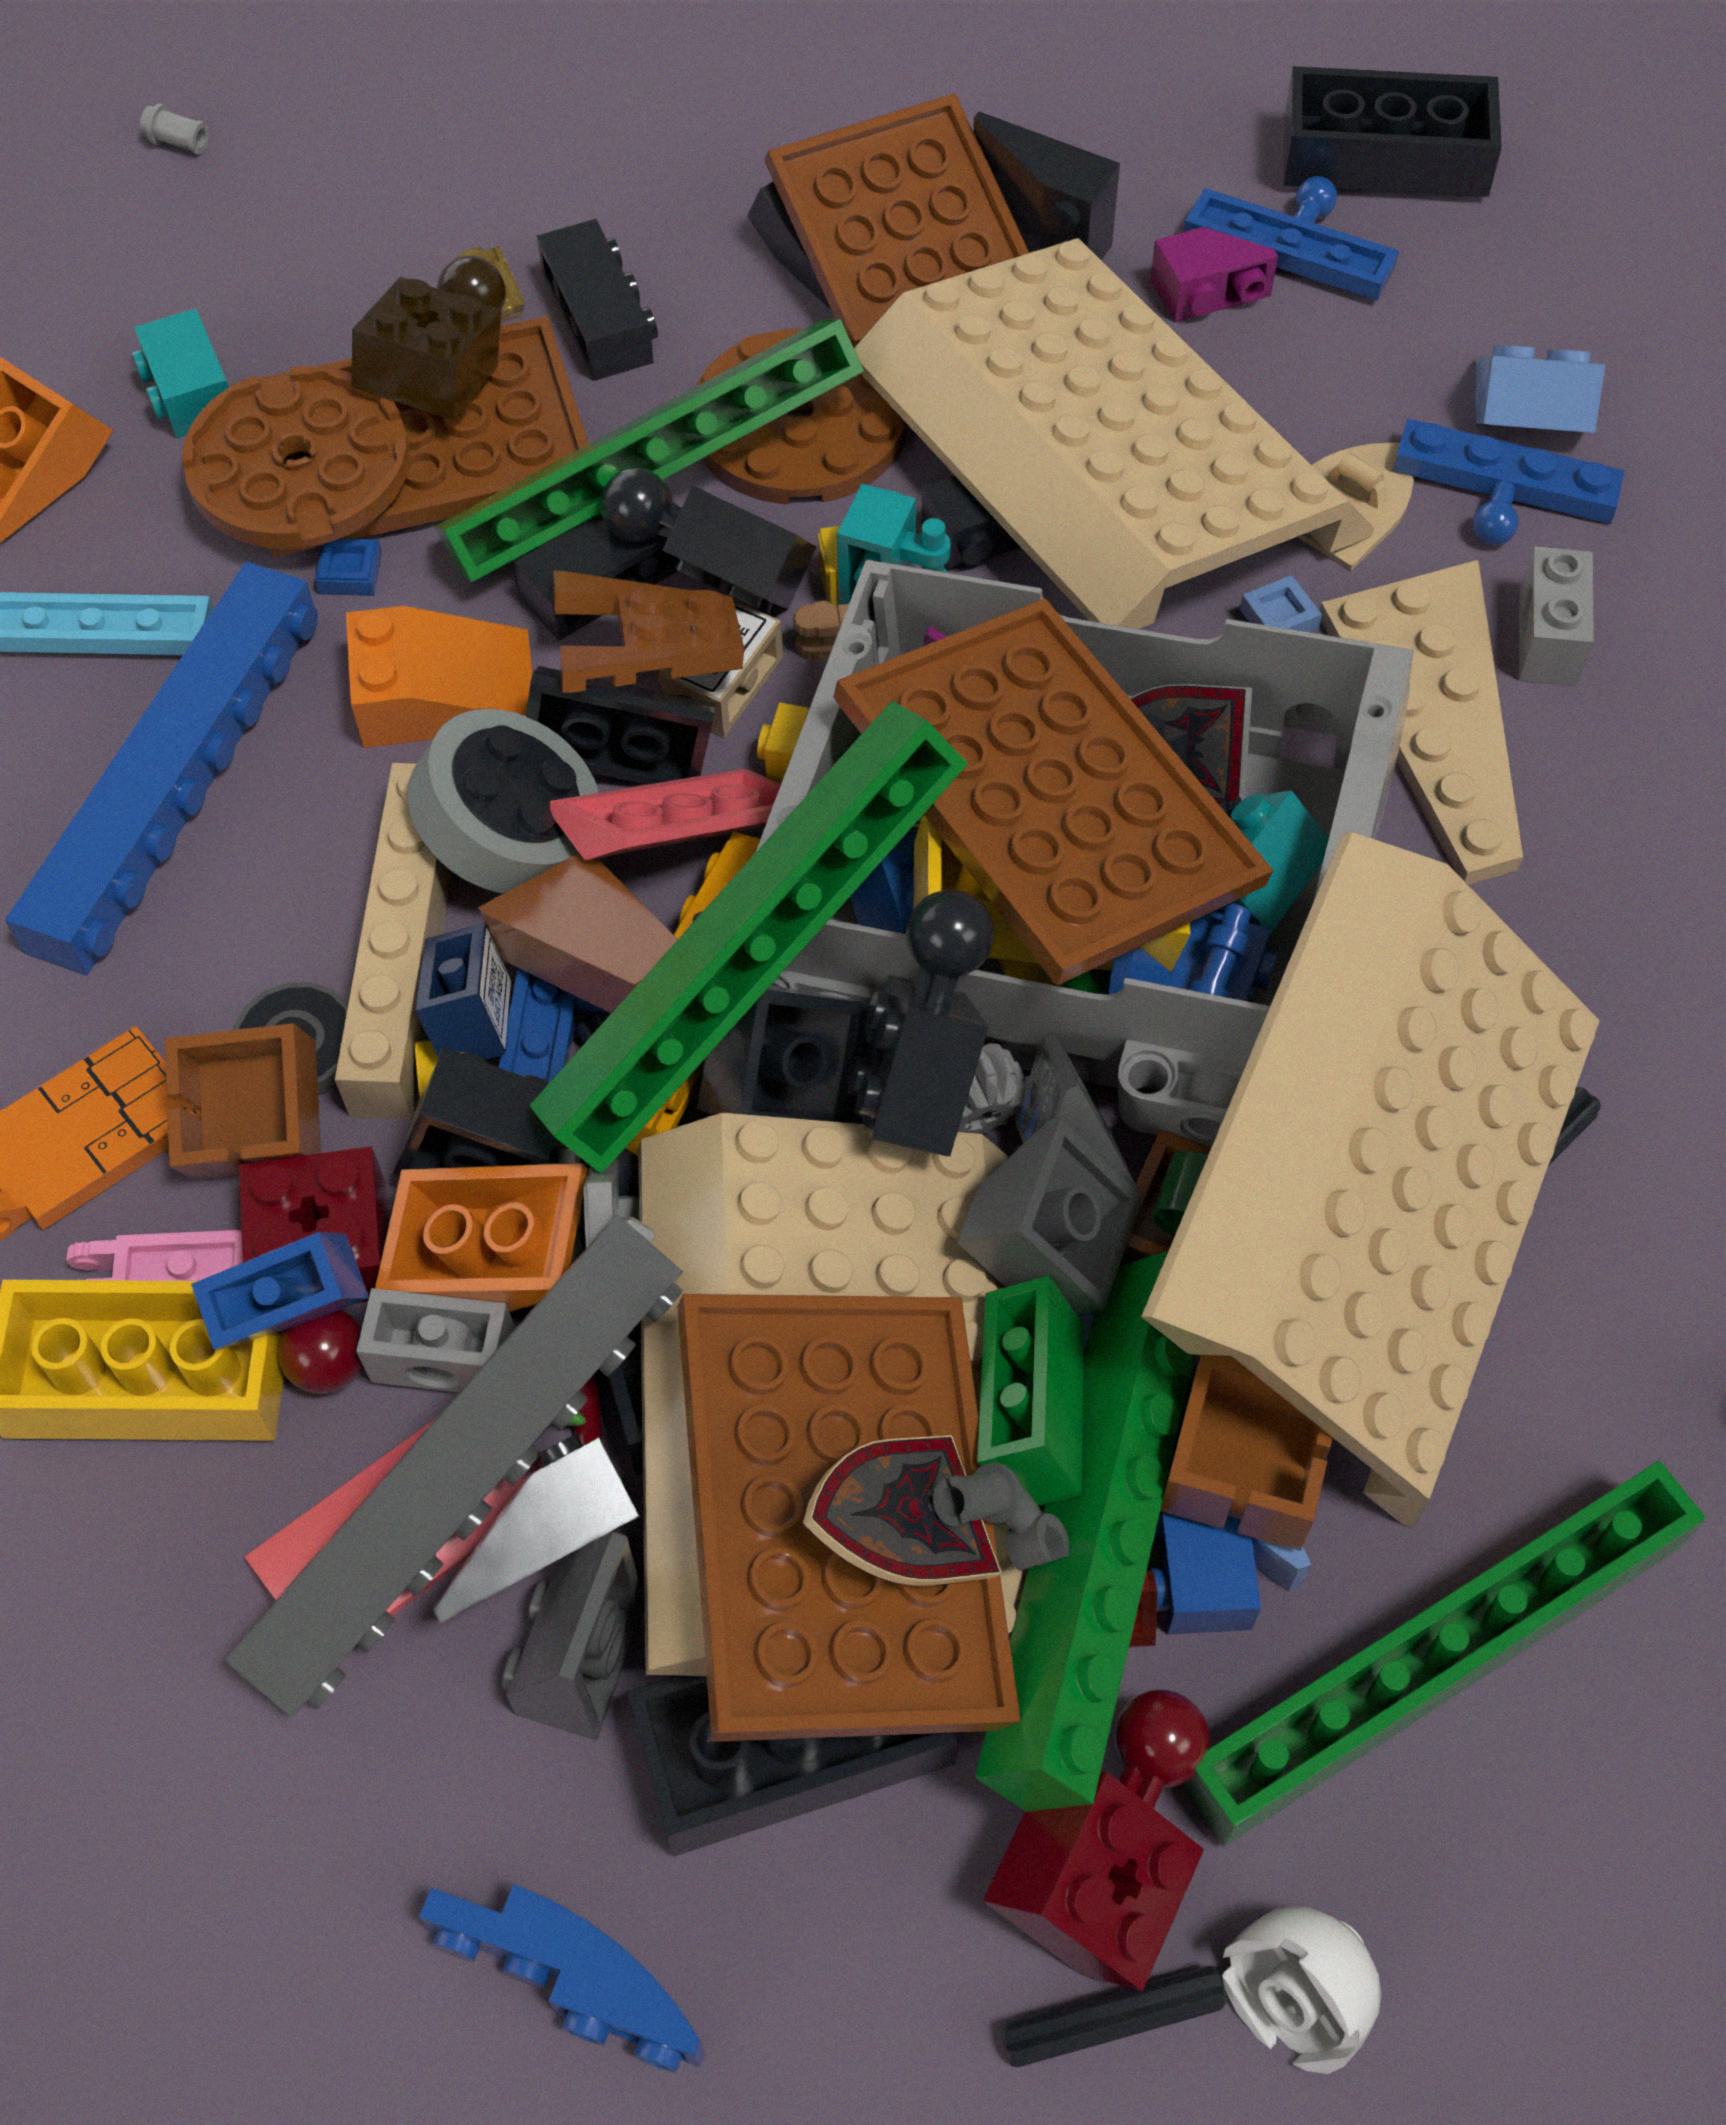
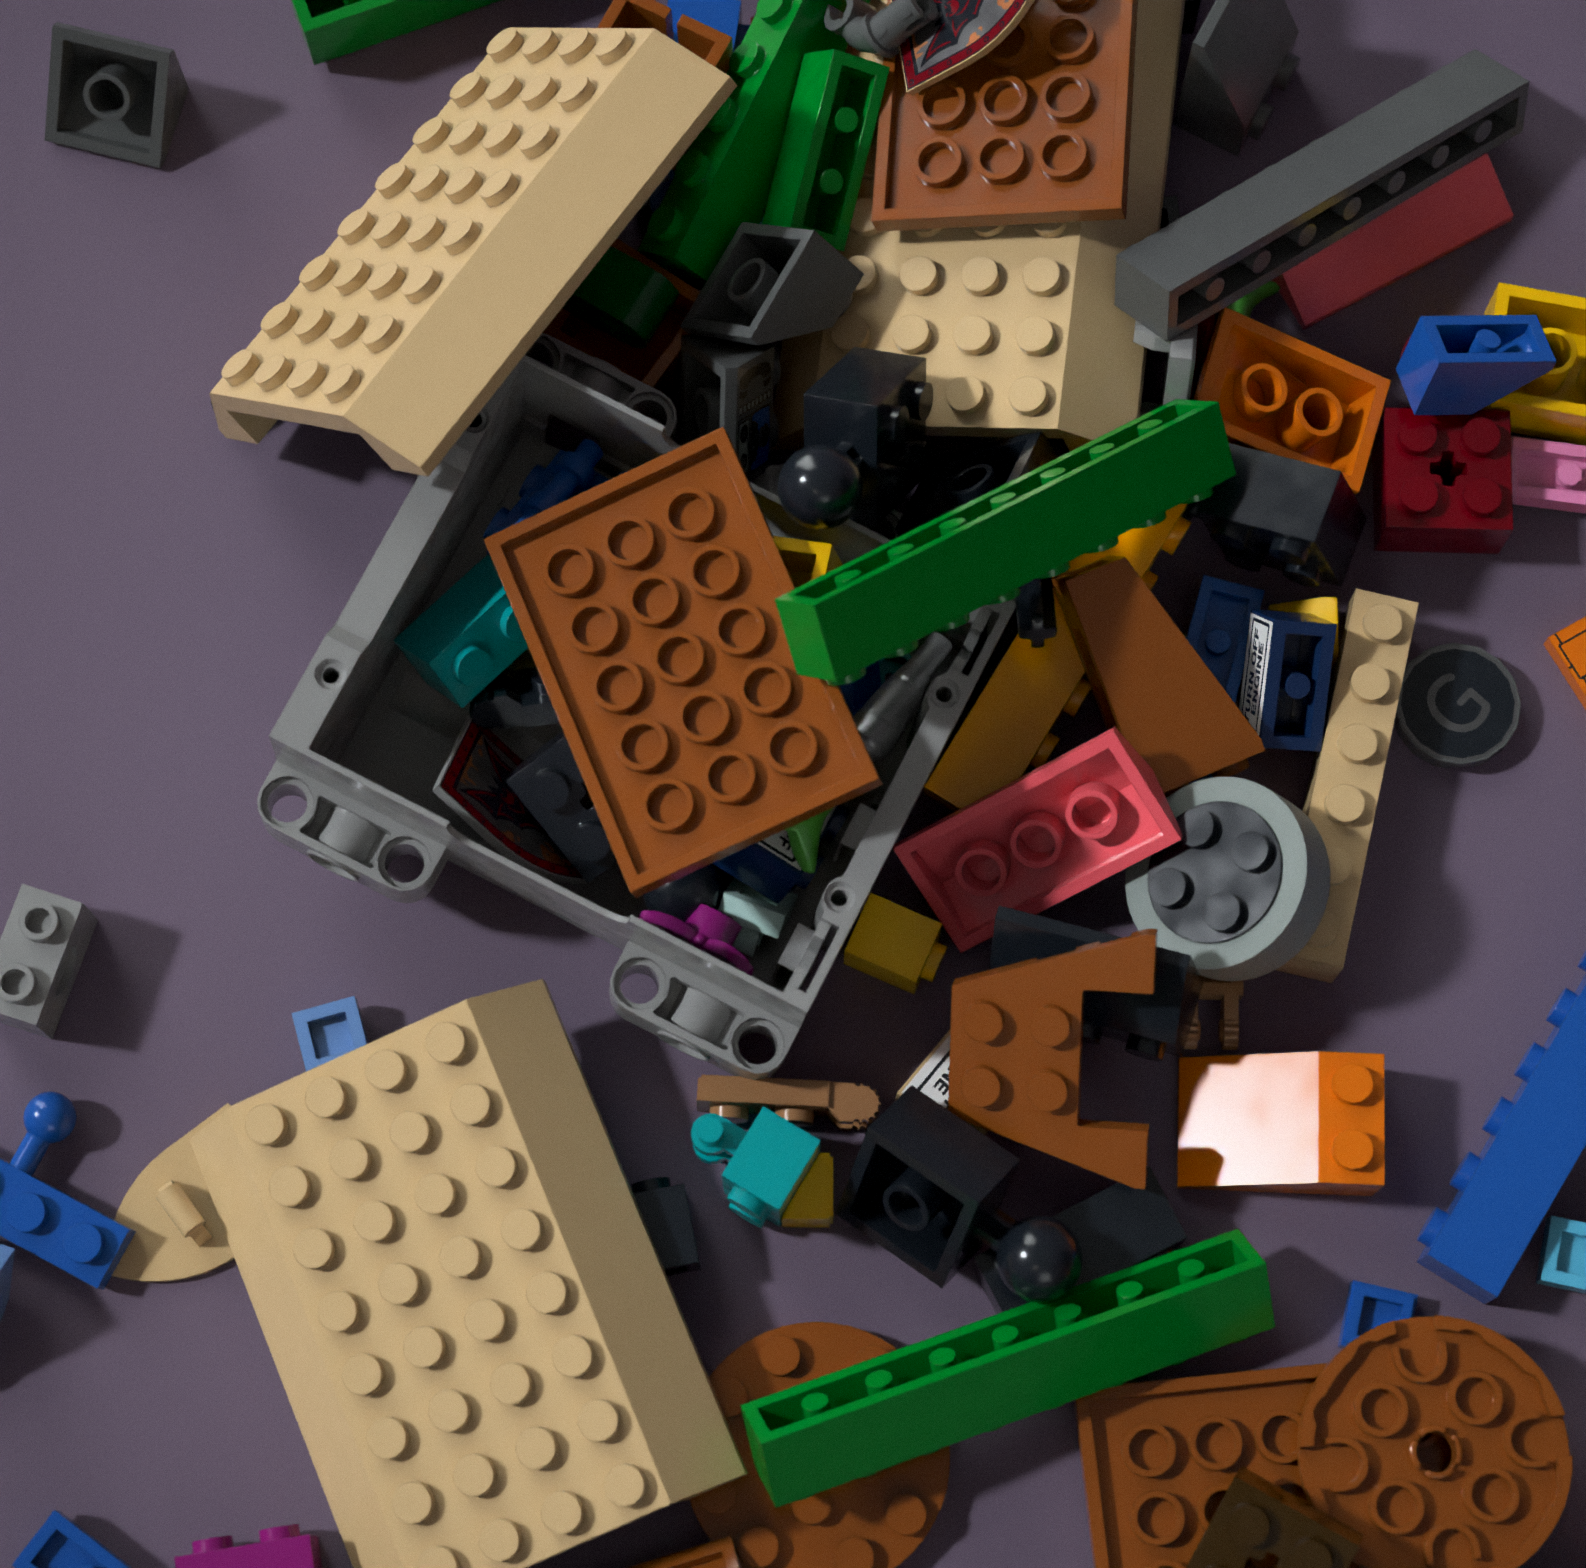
camera: 170 degrees left, 15 degrees up
(252, 1095) = (1506, 619): dark orange piece -> none
(429, 1338) = (1343, 329): light grey brick -> none
(548, 1517) = (1258, 127): slope -> none
(1453, 720) = (199, 926): tan wing -> none

